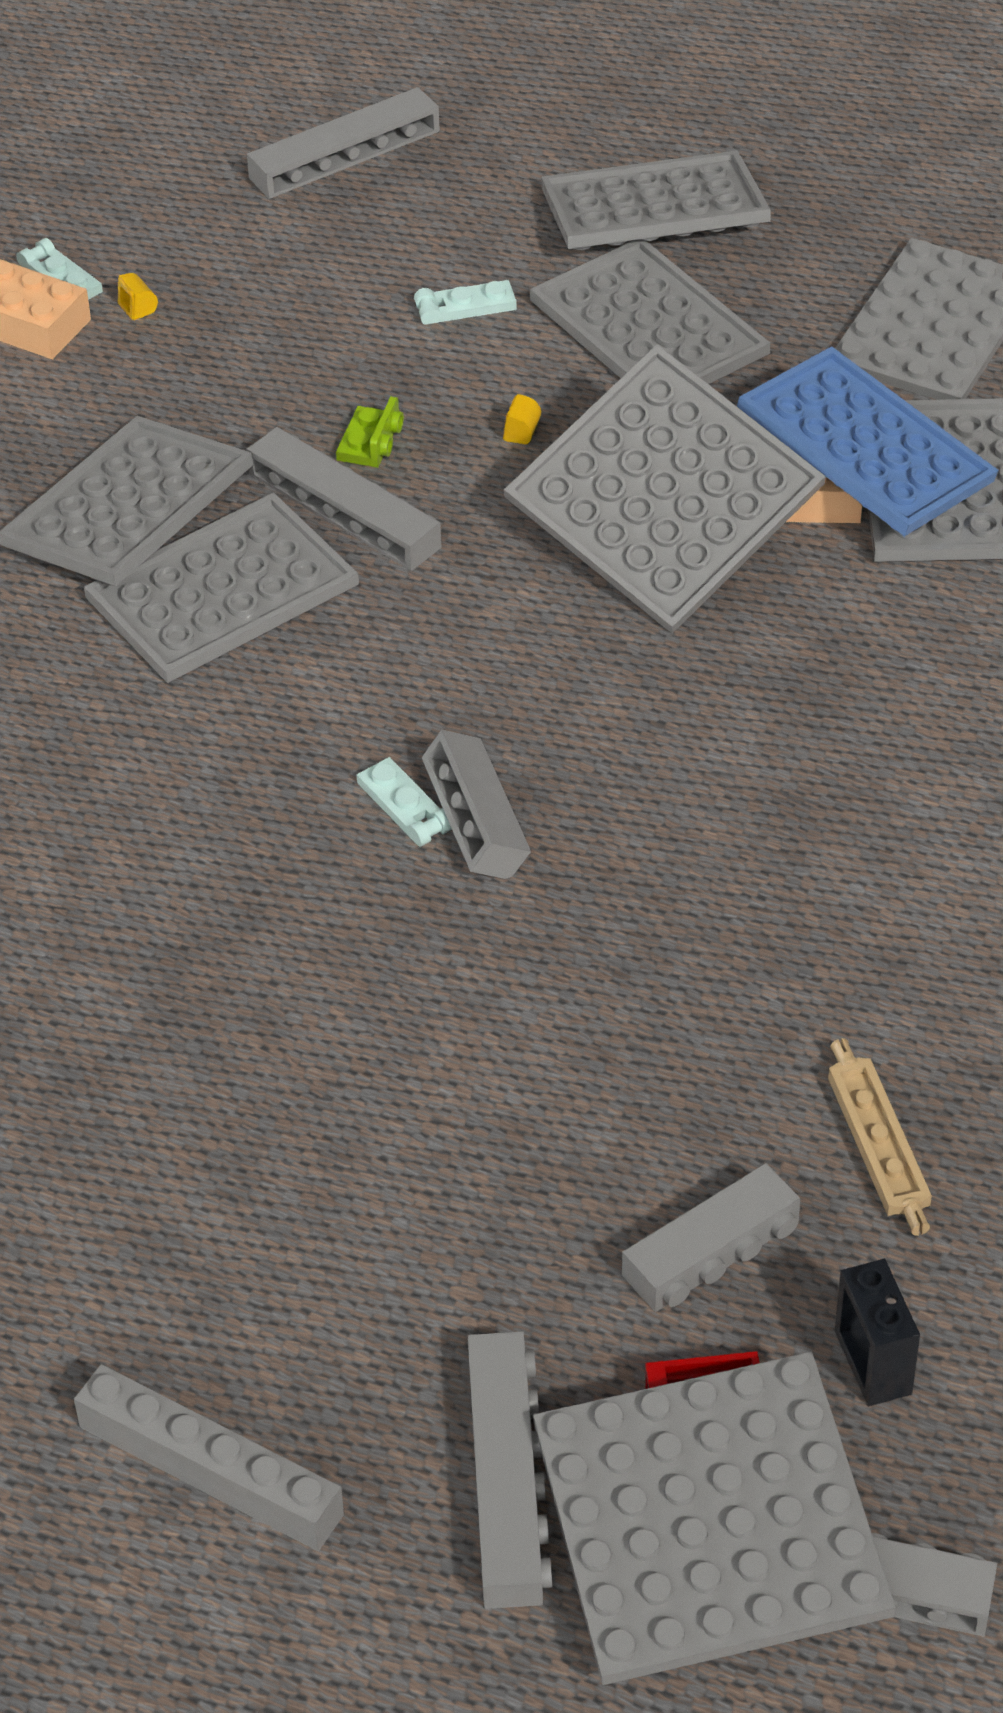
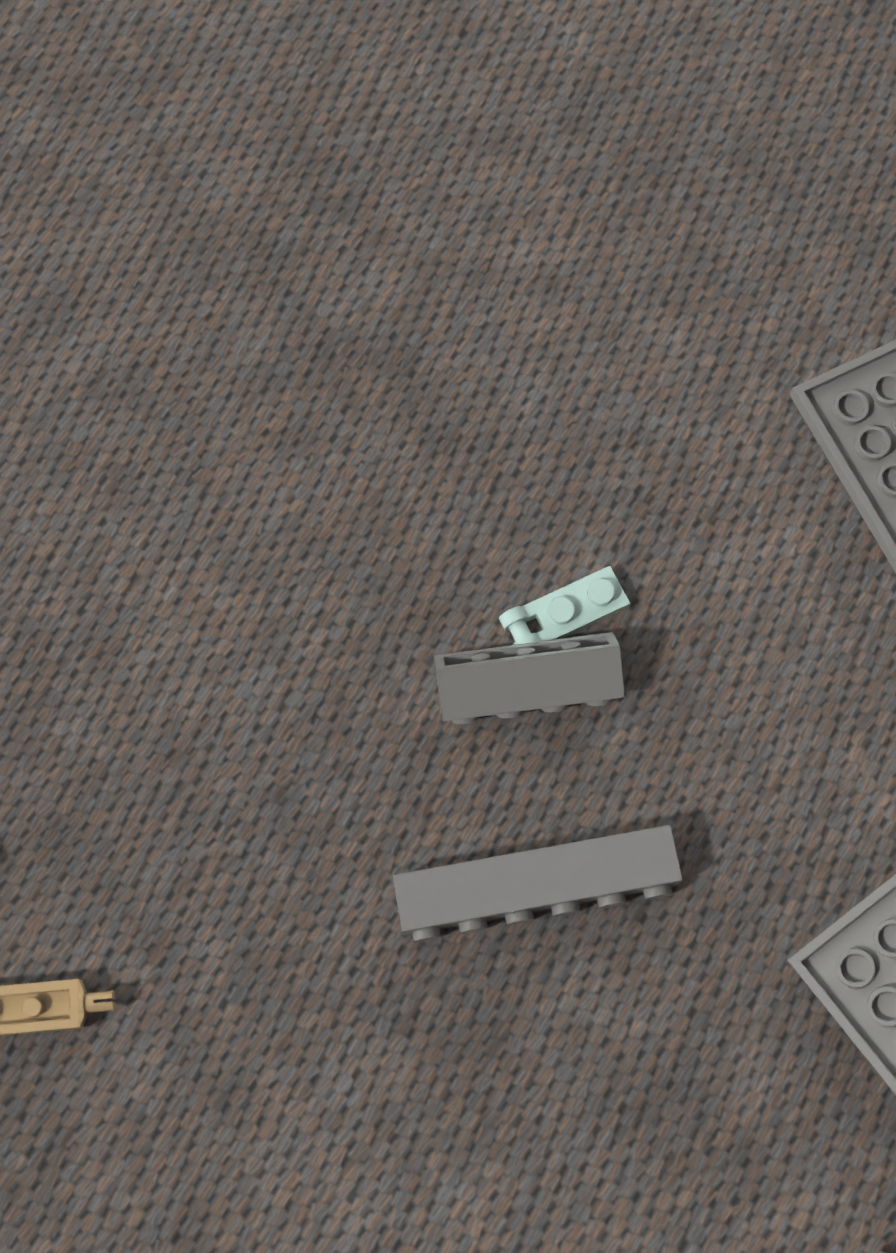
camera: 100 degrees right, 25 degrees up
(655, 782) = (537, 881): none -> light grey brick

